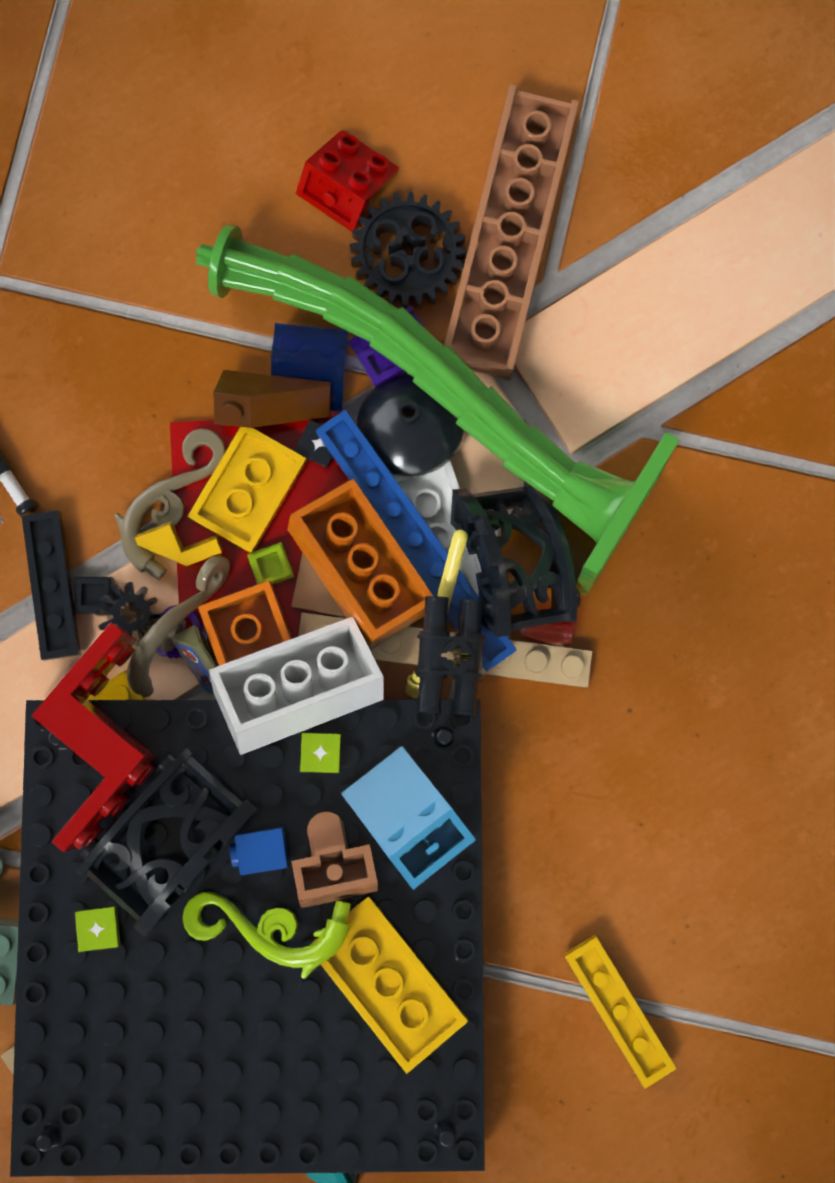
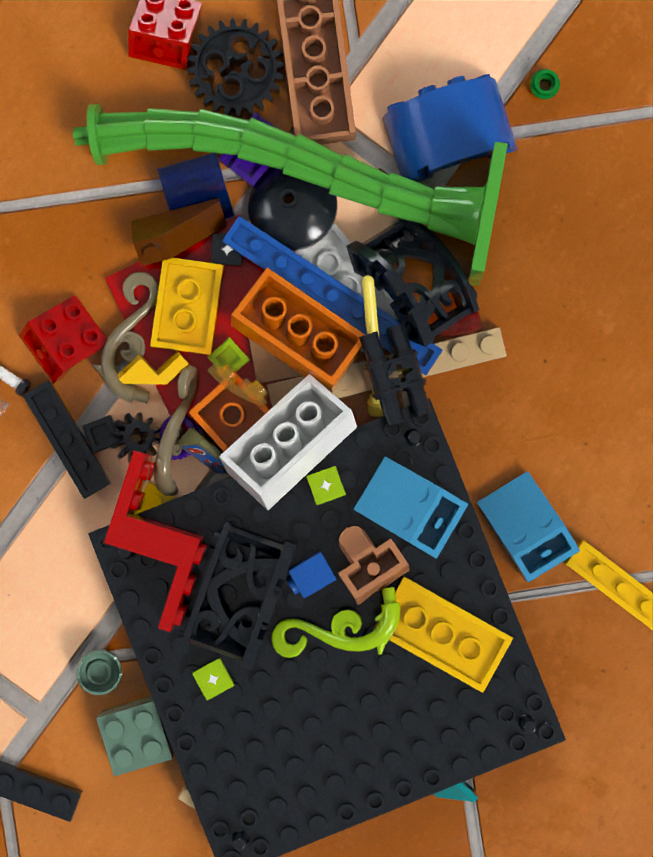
camera: 15 degrees left, 5 degrees up
(94, 469) = (62, 337): none -> red bracket
(273, 607) = (252, 392): none -> clear yellow slope
(537, 895) = (528, 527): none -> dark azure slope
(619, 402) = (447, 126): none -> blue cylinder
(753, 393) = (549, 76): none -> green plate

